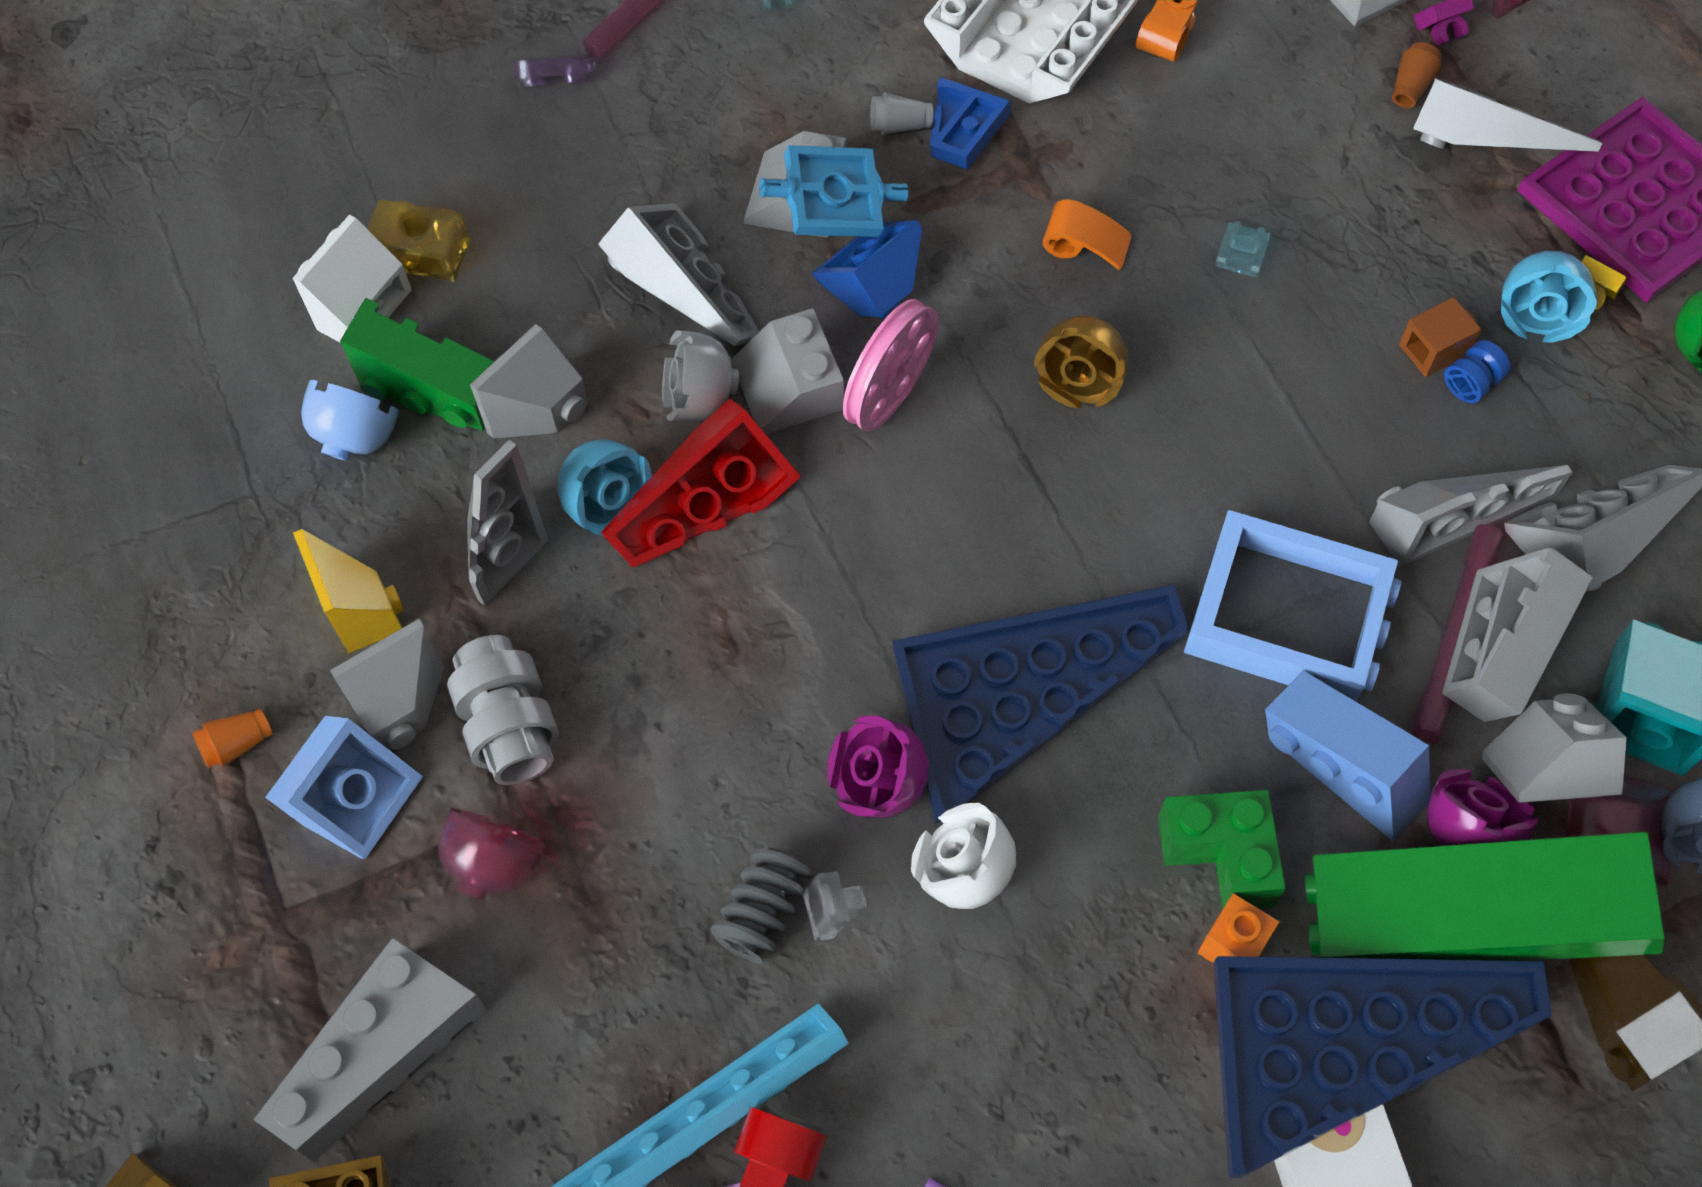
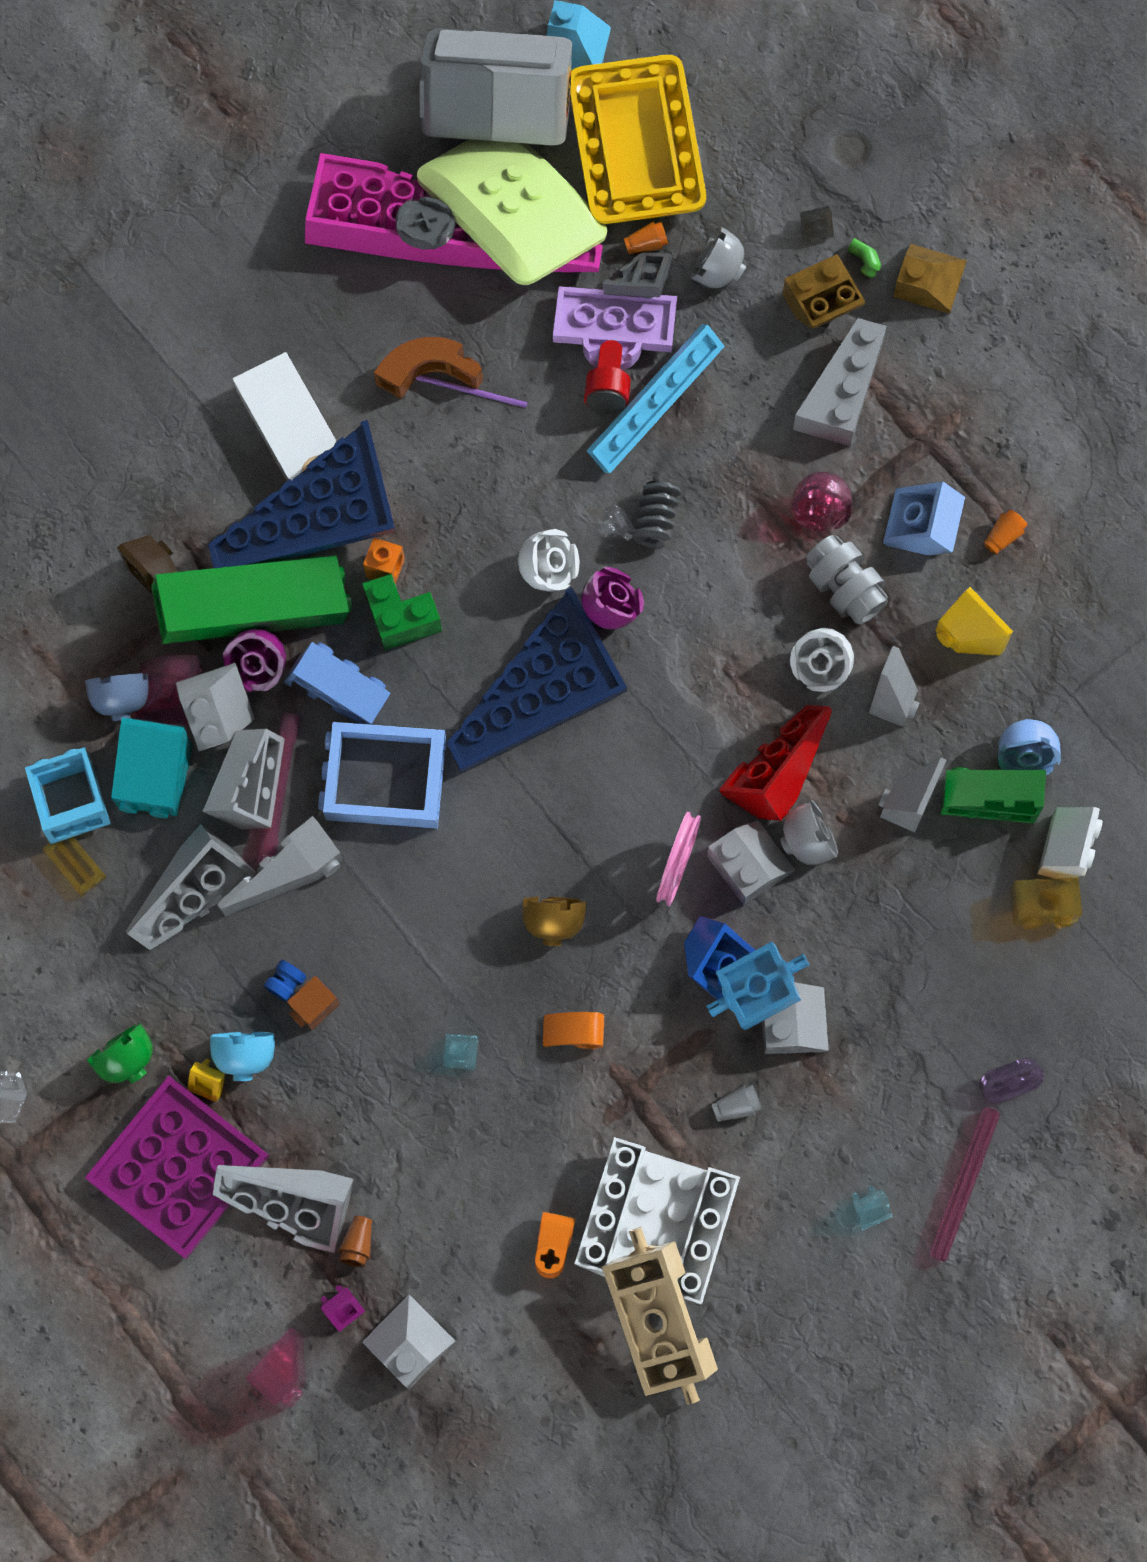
camera: 165 degrees right, 10 degrees up
(393, 685) = (917, 573): light grey slope -> none
(585, 599) = (822, 659): none -> white cylinder
(600, 481) = (845, 742): medium azure cylinder -> none
(666, 257) = (855, 924): light grey wedge -> none
(964, 122) = (687, 1109): blue wing -> none

